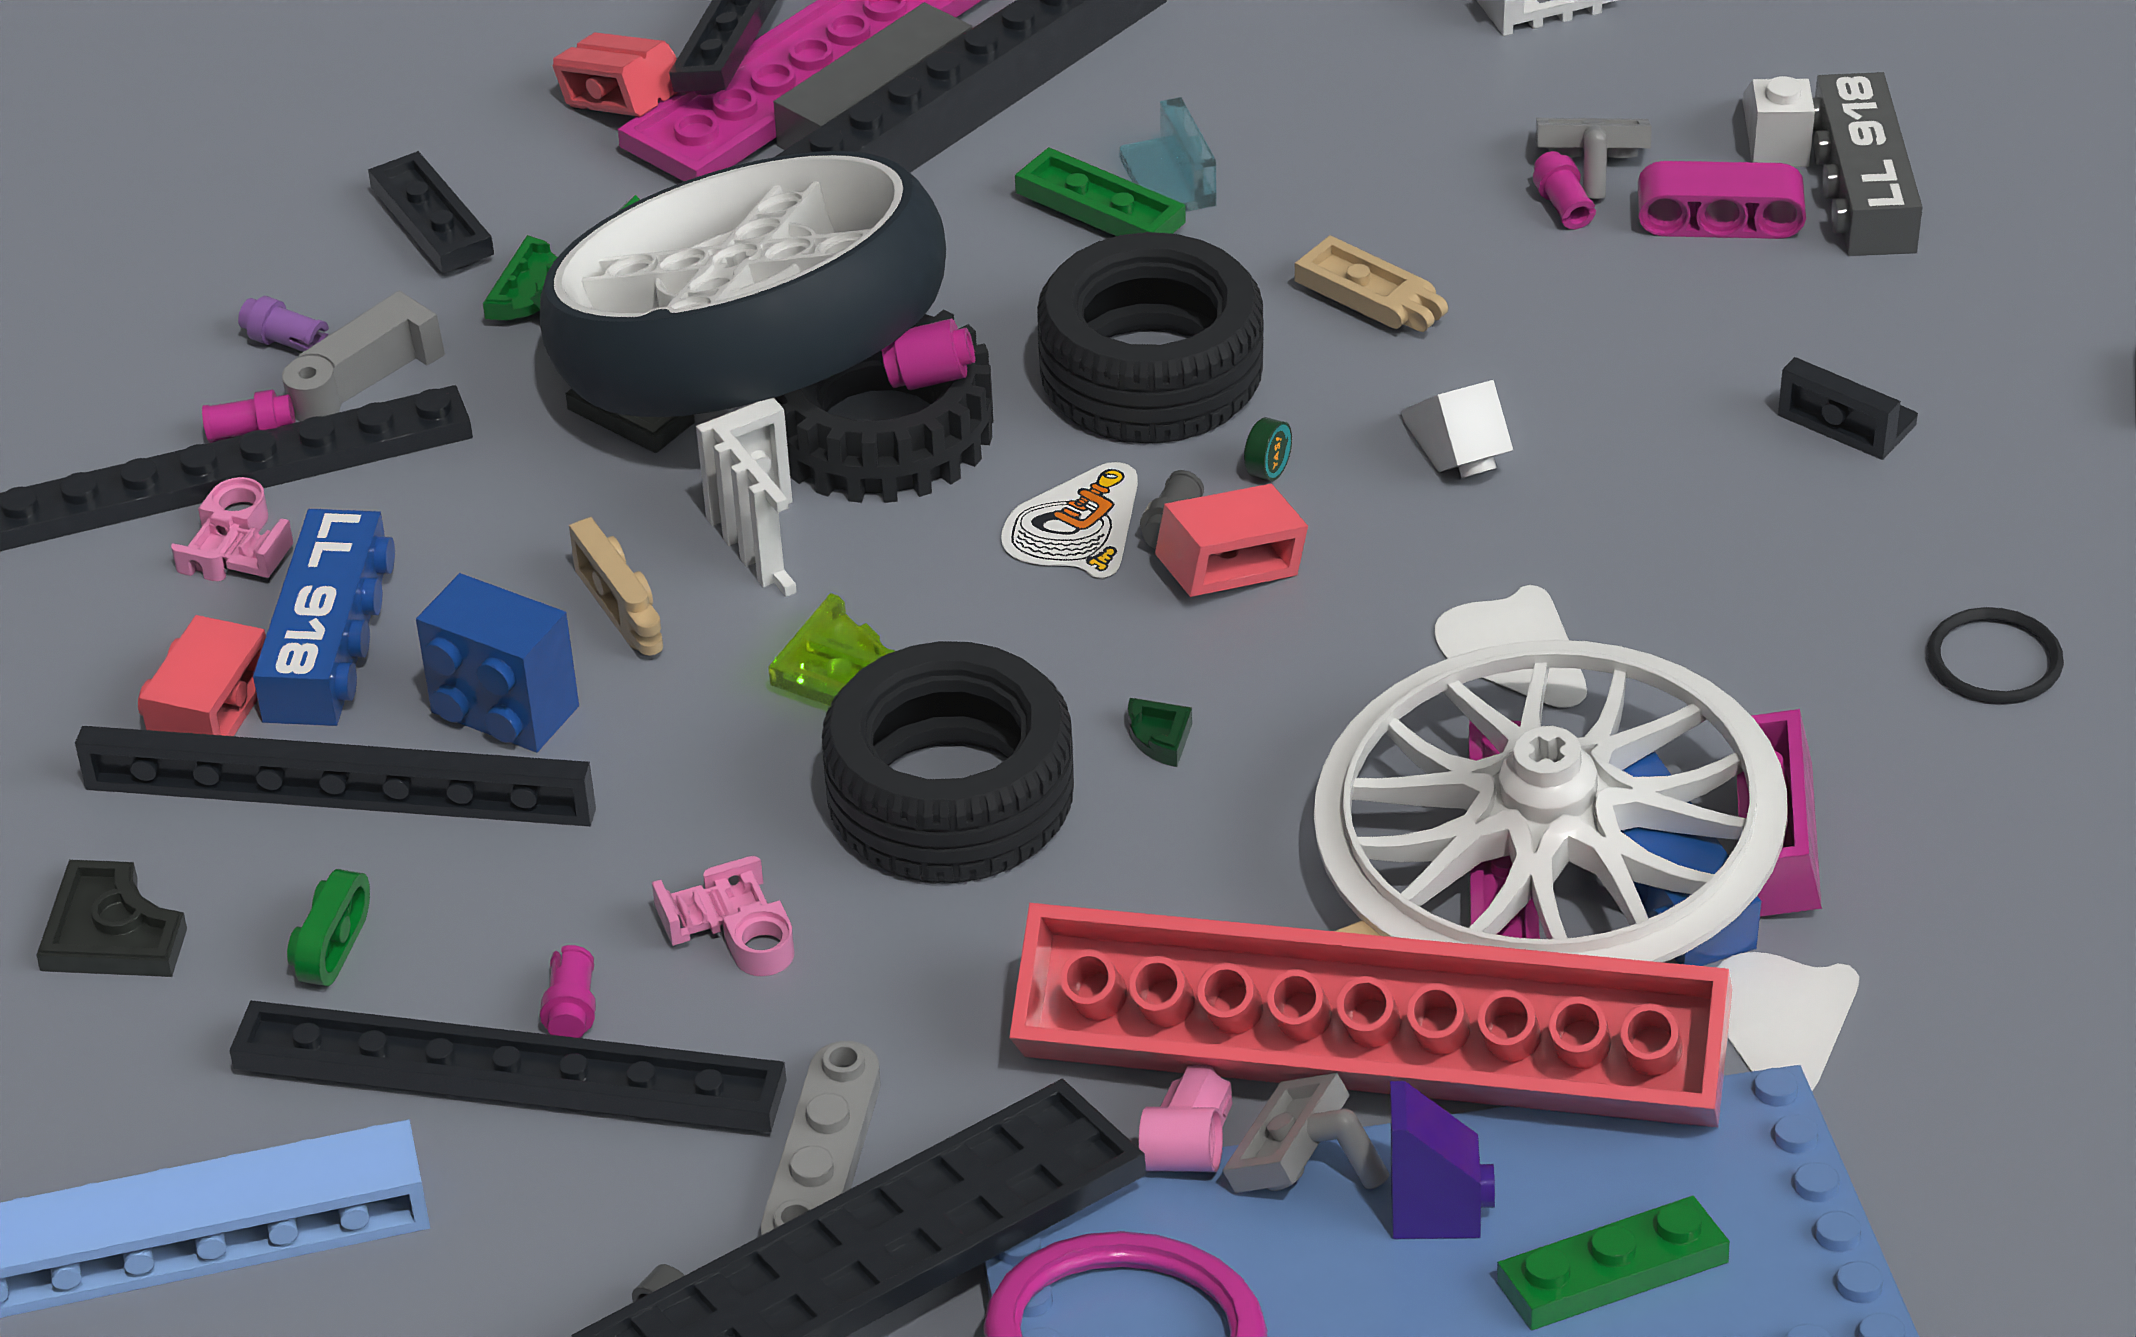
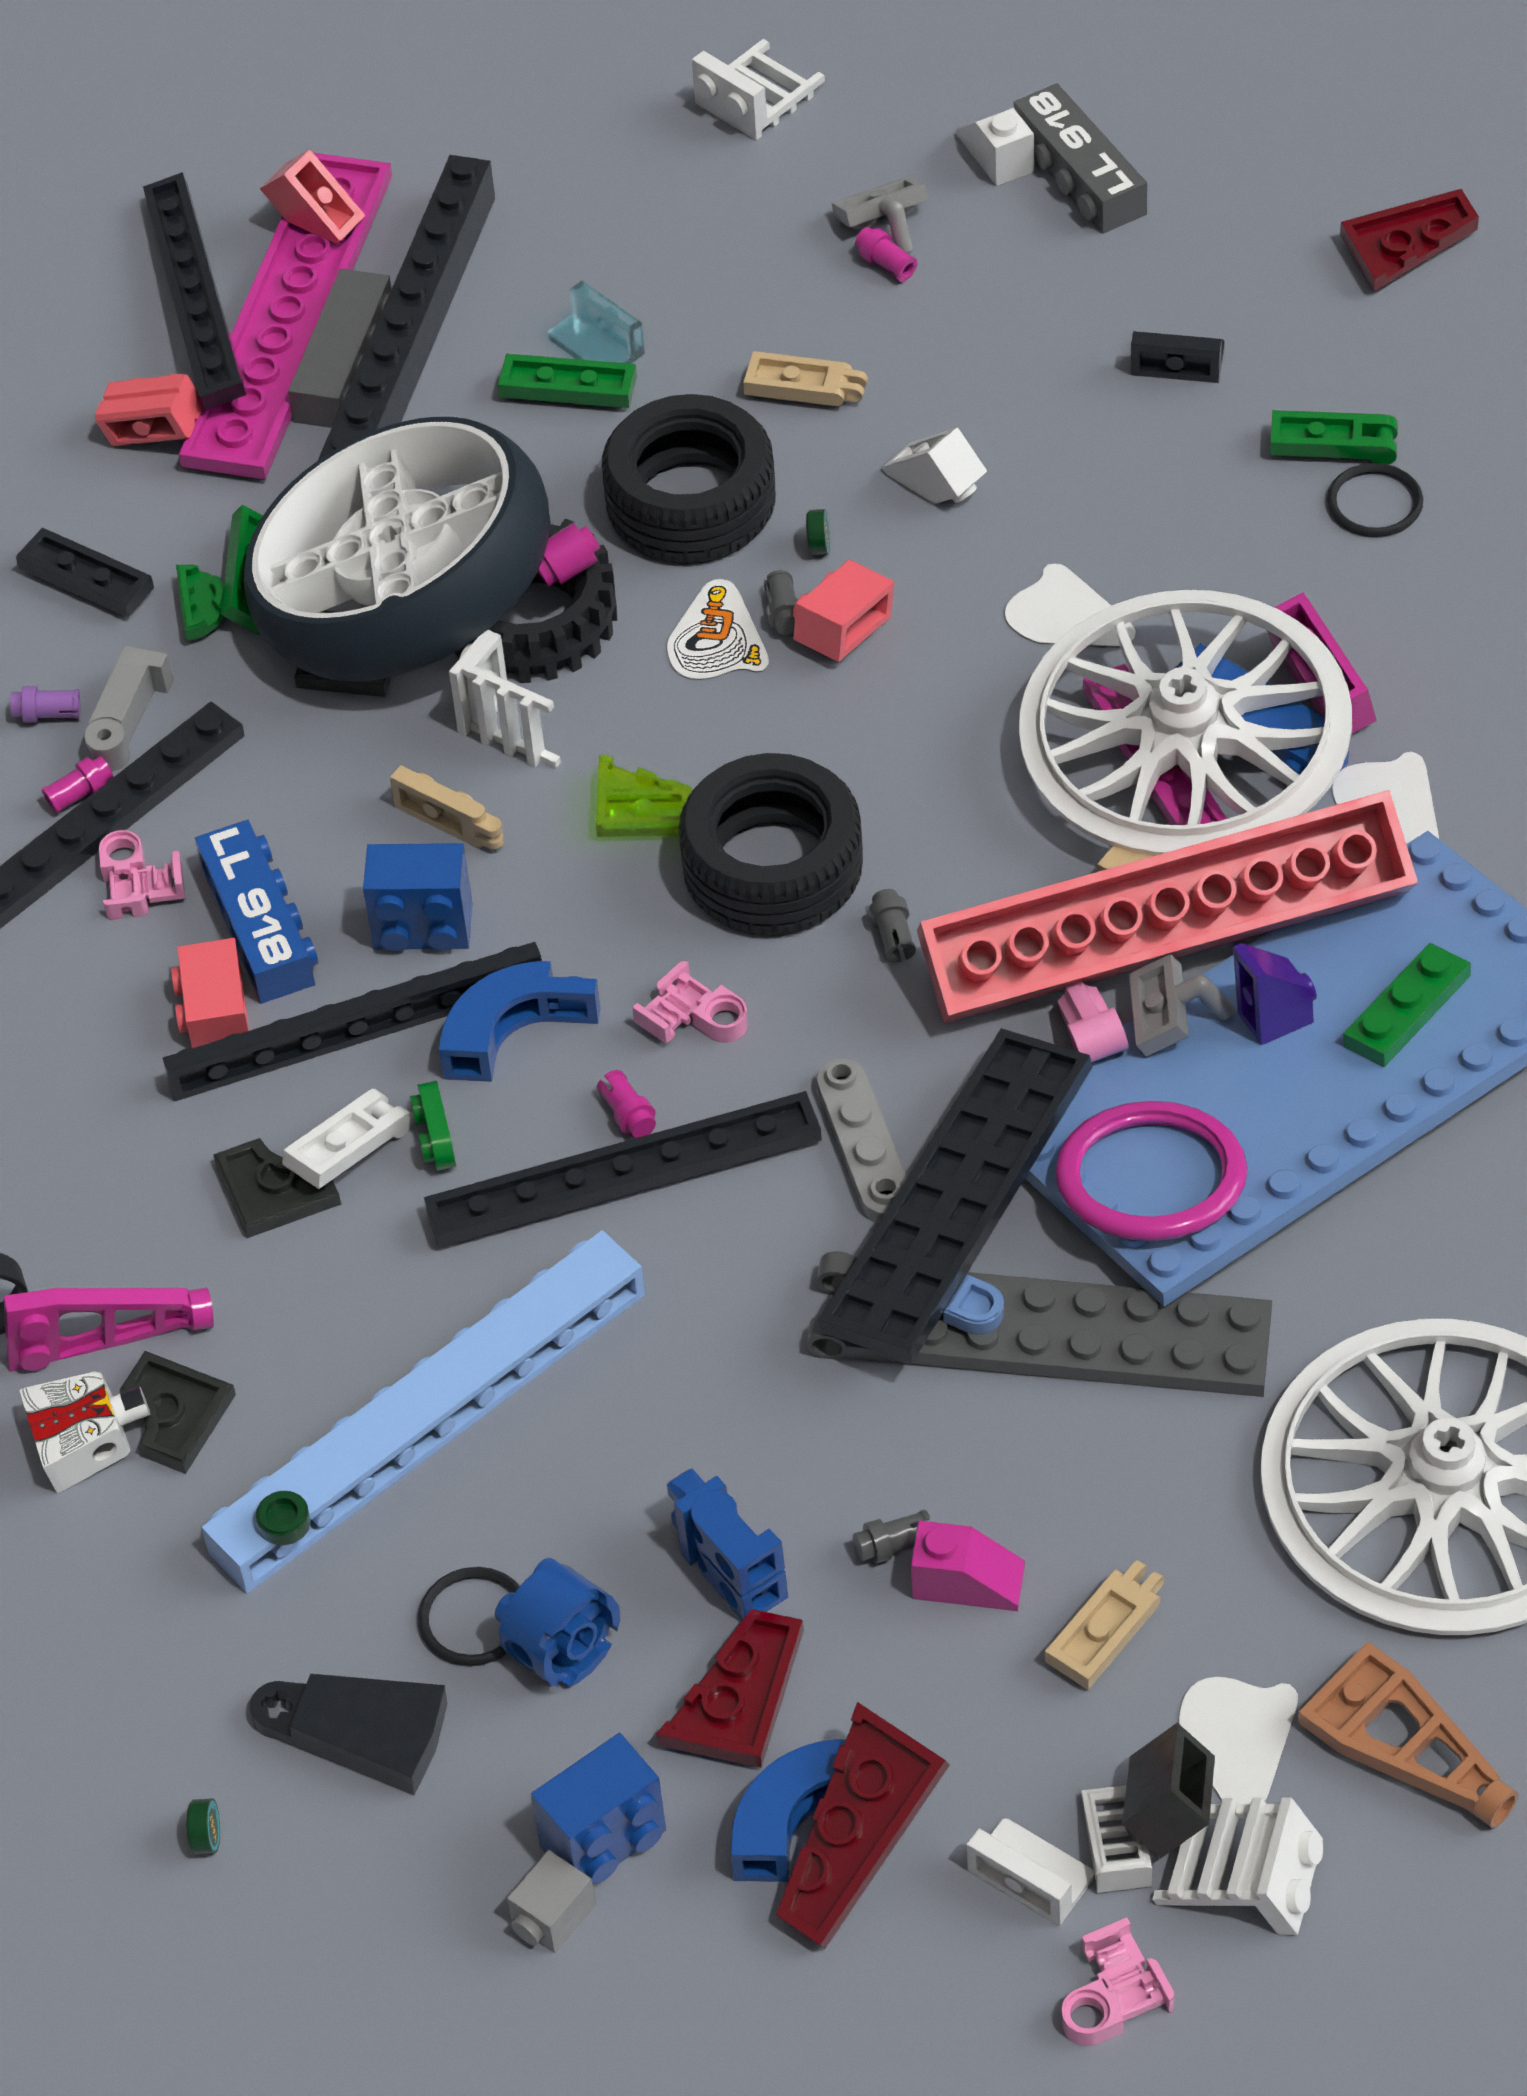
camera: 25 degrees left, 10 degrees up
(217, 897) = (346, 1138): none -> white plate
(505, 824) = (504, 1004): none -> blue arch
(1043, 886) = (890, 915): none -> dark grey animal
(1159, 729) = (877, 765): dark green tile -> none
(1721, 199) = (999, 222): dark pink beam -> none
(1985, 561) = (1334, 435): none -> green plate

